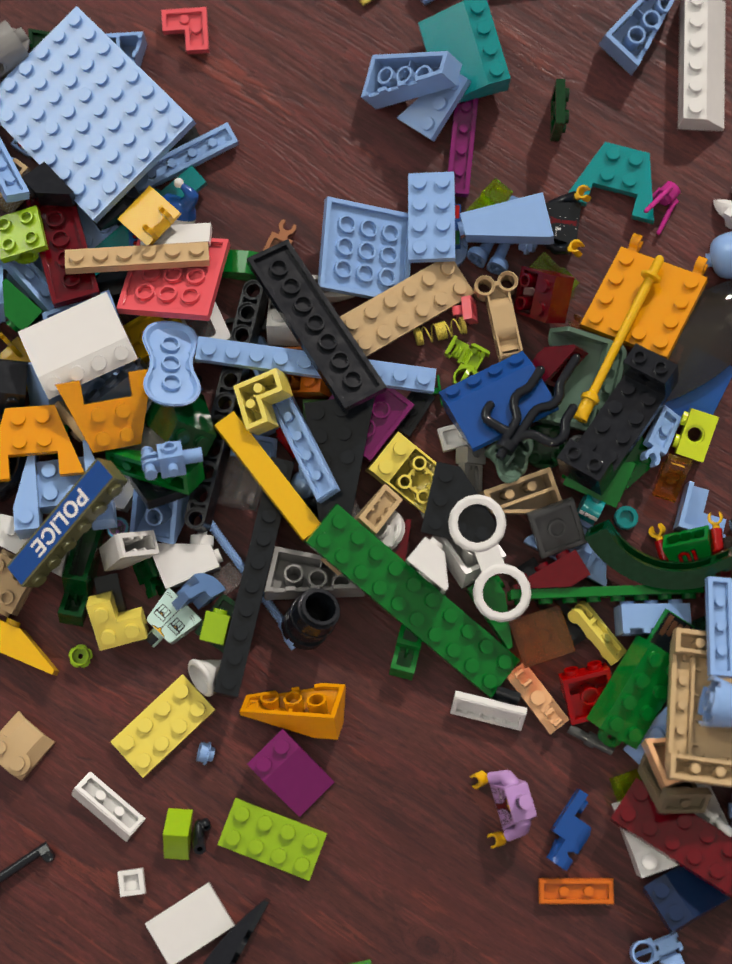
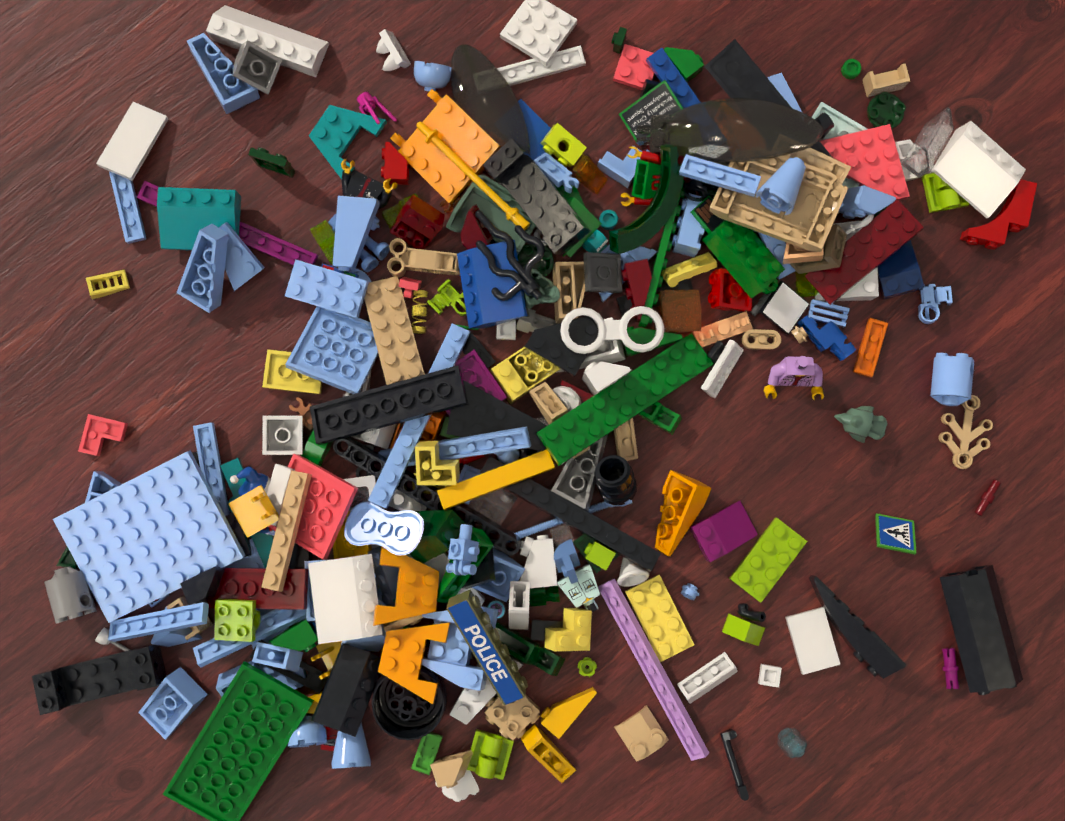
camera: 75 degrees left, 5 degrees up
(57, 933) = (791, 742): none -> clear light blue head
(98, 737) = (653, 670): none -> lavender plate
(209, 382) = (403, 502): none -> white plate
(246, 221) = (282, 435): none -> white slope
(311, 201) = (281, 378): none -> light yellow plate
(362, 619) = (626, 441): none -> tan tile
(476, 907) = (862, 423): none -> sand green head
(540, 748) = (760, 339): none -> tan plate
(562, 794) = (799, 334): none -> tan plate
(588, 765) = (784, 308): none -> white tile
(602, 249) = (395, 166): none -> red slope
(611, 831) = (843, 317): none -> light blue tile
(662, 57) = (256, 66): none -> light grey slope
(698, 606) = (695, 185): none -> black piece

